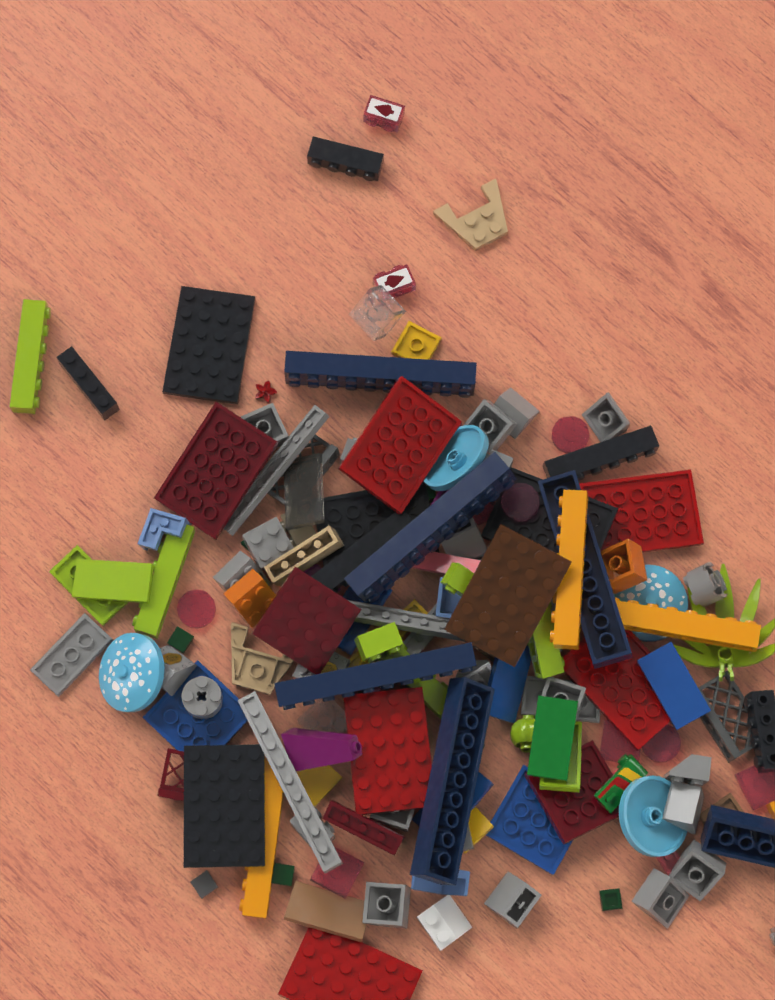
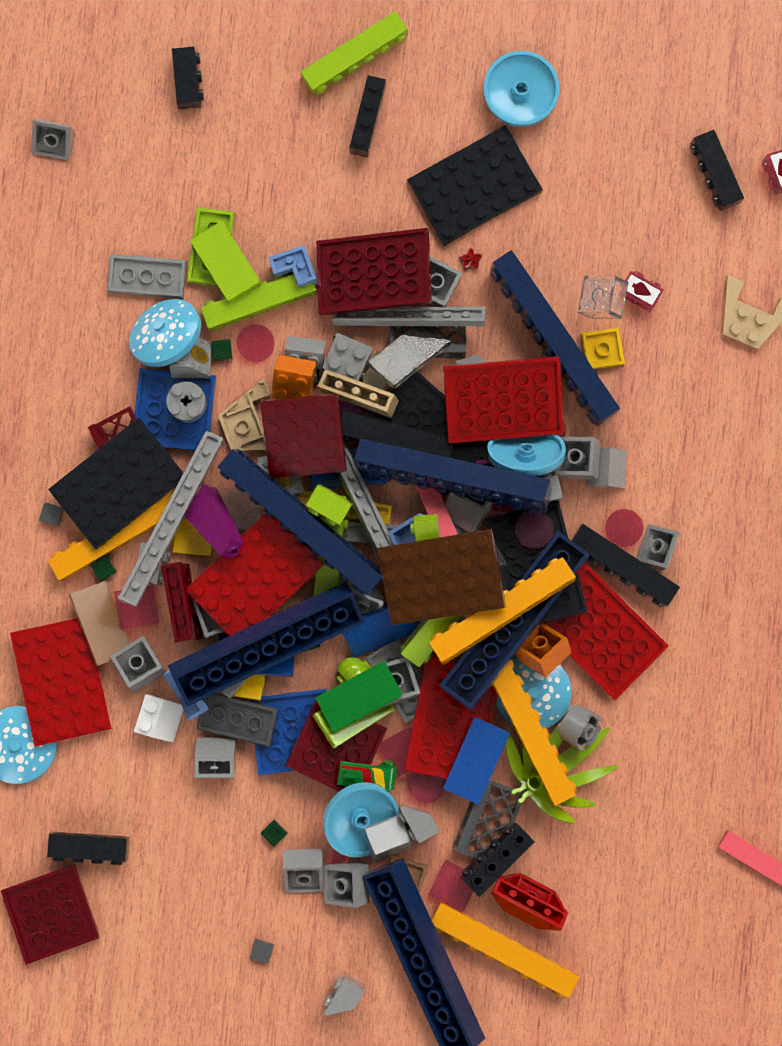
camera: 55 degrees right, 10 degrees up
(163, 252) = (521, 88): none -> medium azure dish
(496, 855) = (239, 719): none -> dark grey tile
(702, 985) = (261, 951): none -> dark grey tile

